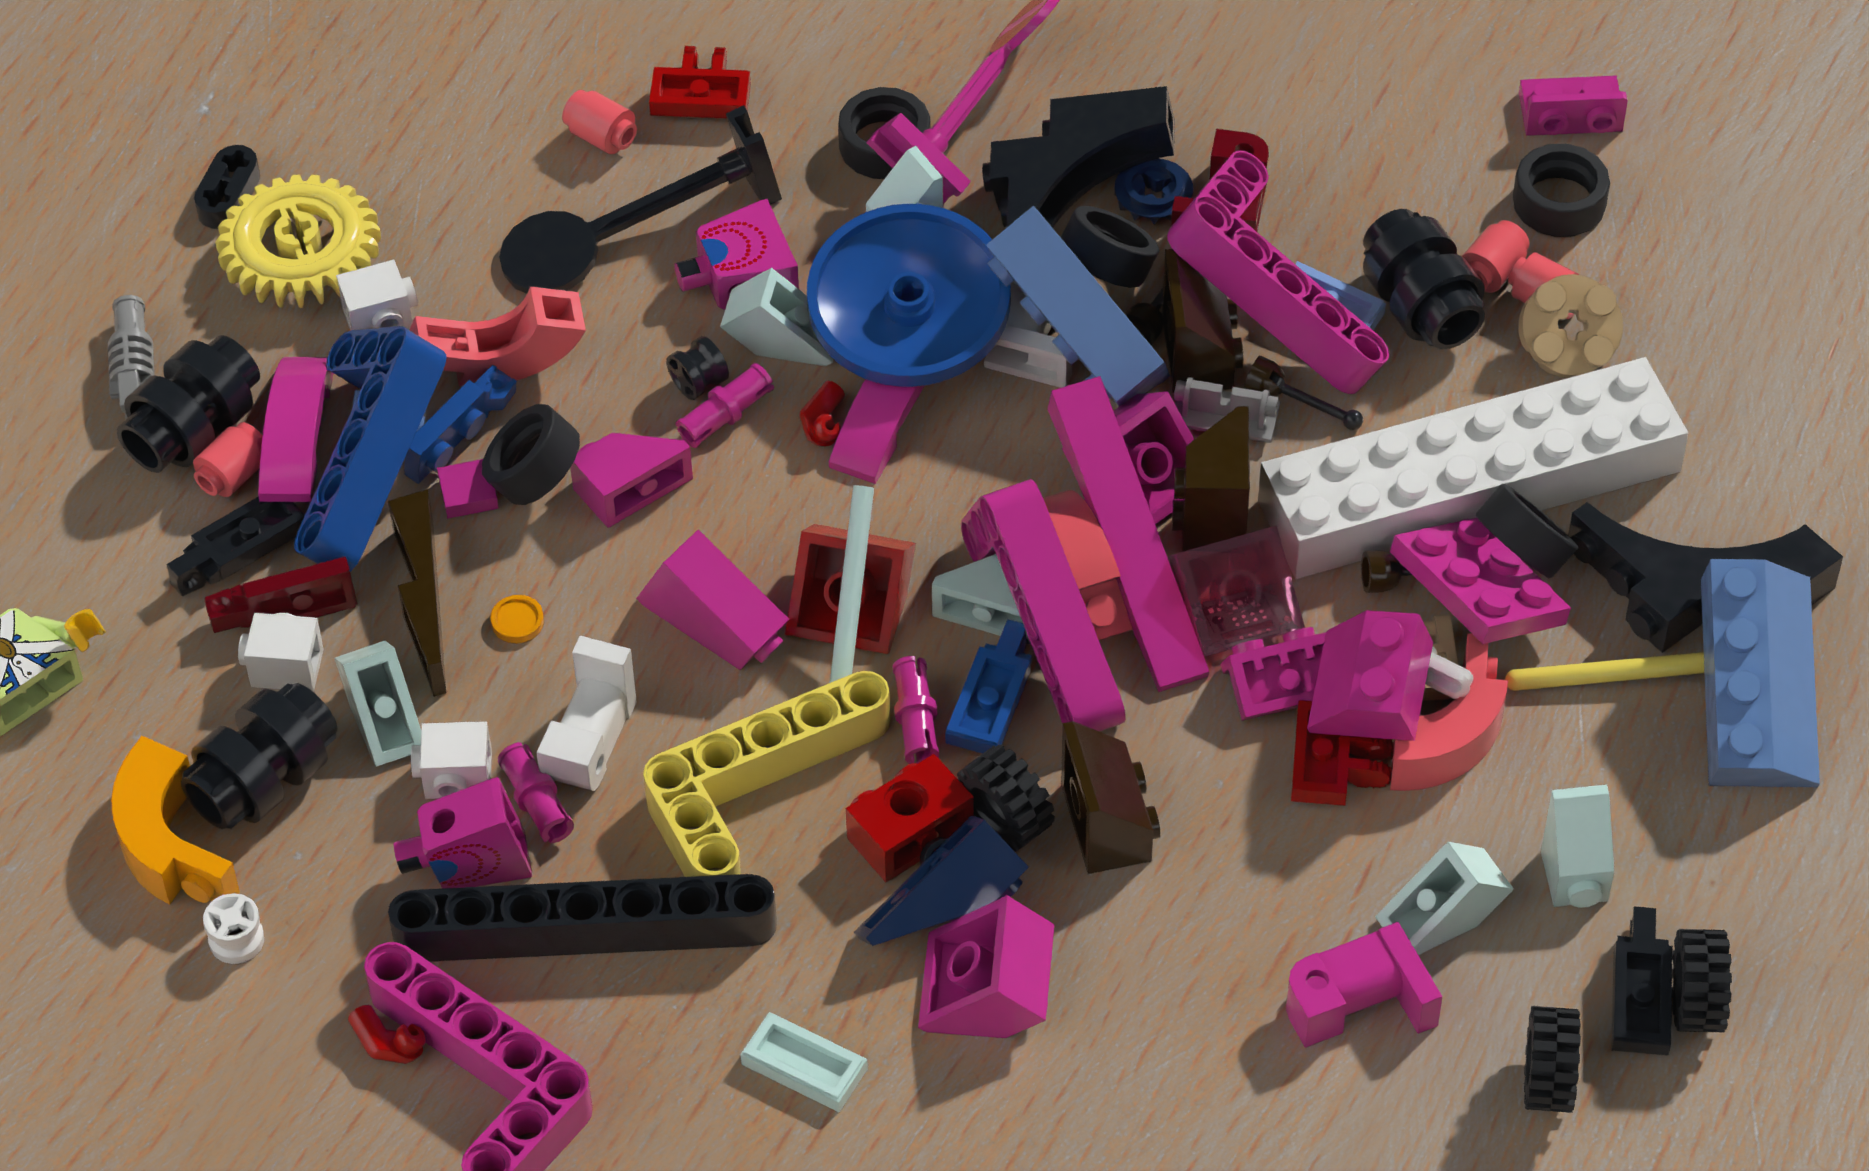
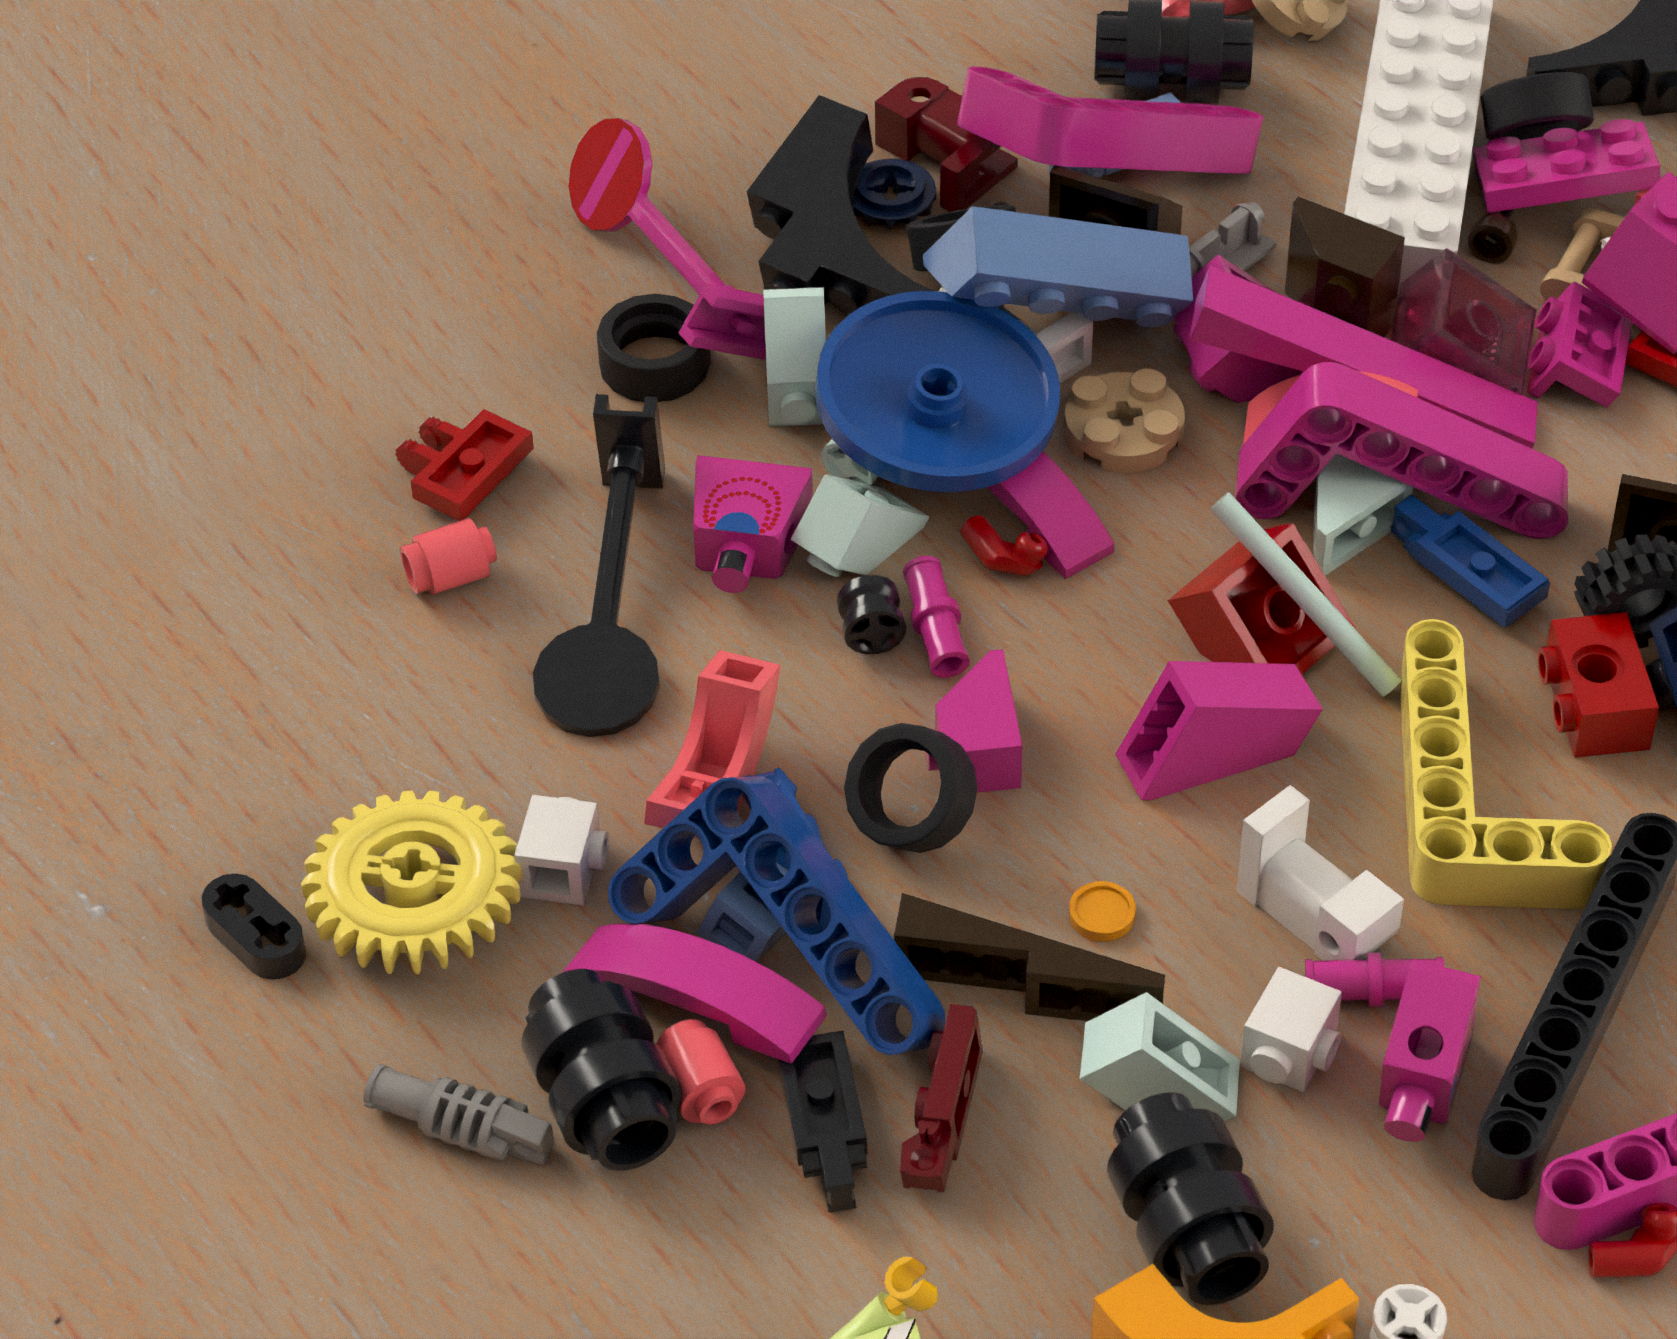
camera: 60 degrees left, 5 degrees down
(281, 650) = (1028, 1128): white brick -> none
(466, 489) = (886, 873): dark pink tile -> none
(915, 709) = (1480, 635): dark pink pin -> none
(1006, 406) = (1140, 396): none -> tan plate
(1269, 376) = (1204, 213): hinge -> none

